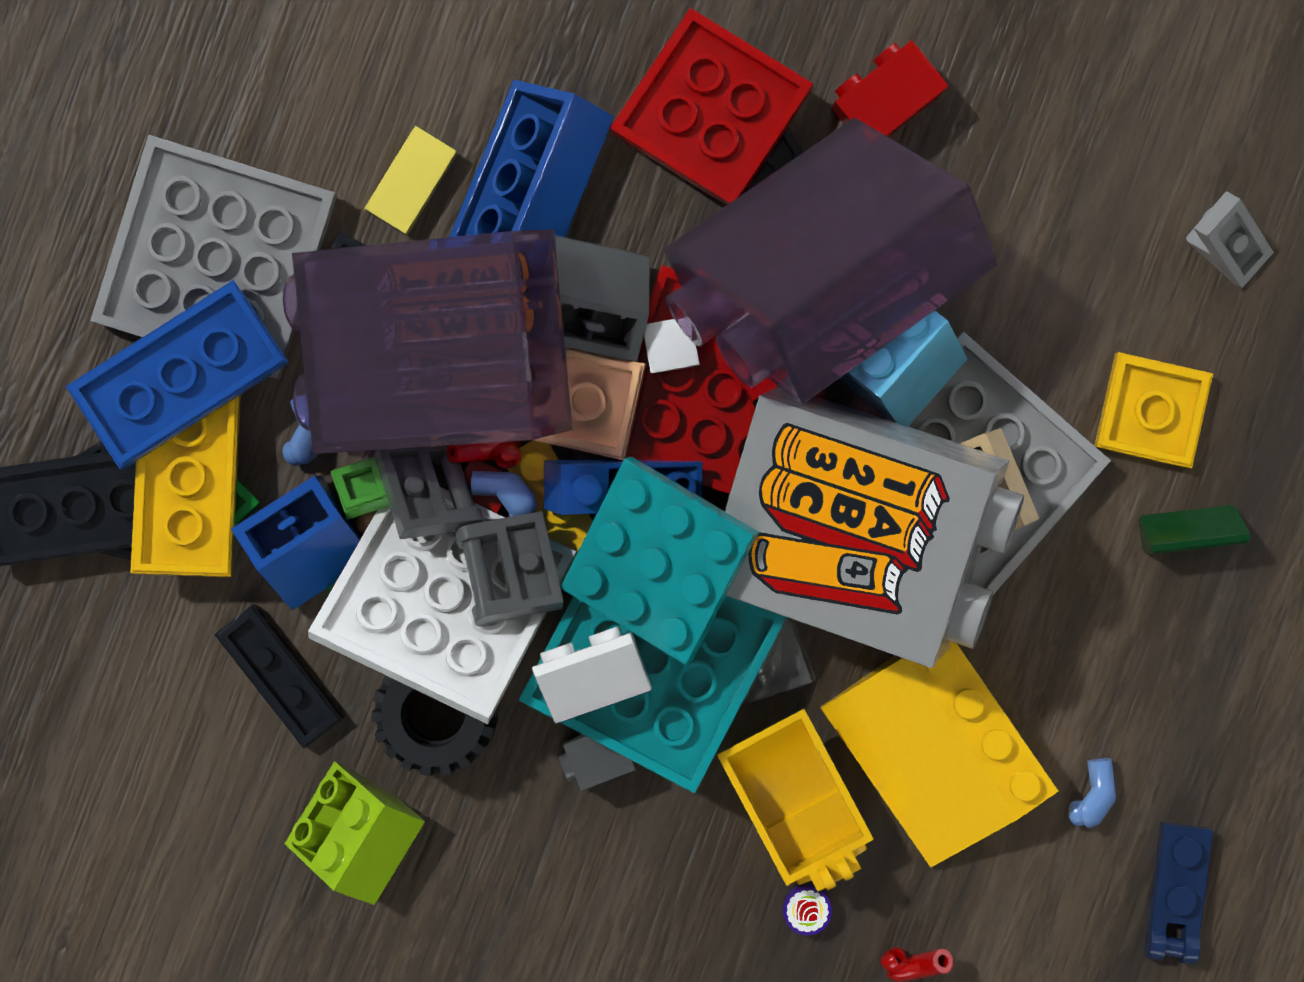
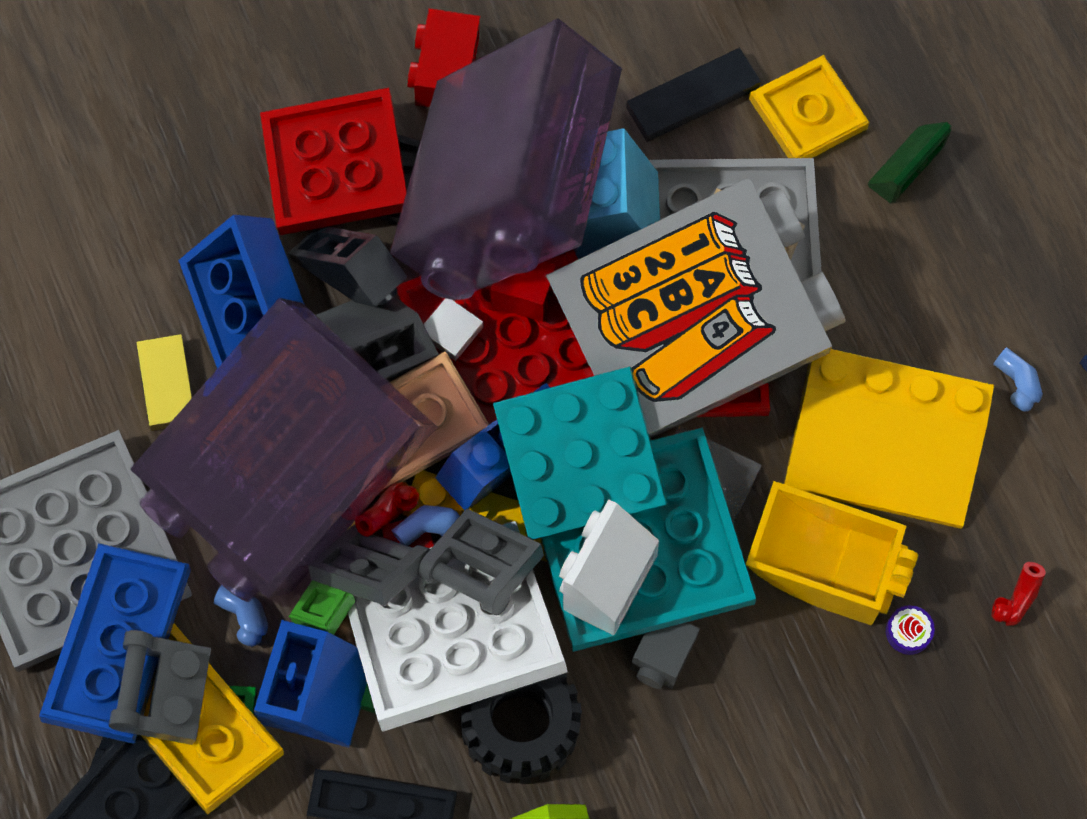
camera: 55 degrees left, 20 degrees down
(184, 460) = (175, 693): none -> dark grey plate
(635, 217) = (351, 264): none -> black slope
(1070, 310) = (693, 94): none -> black tile

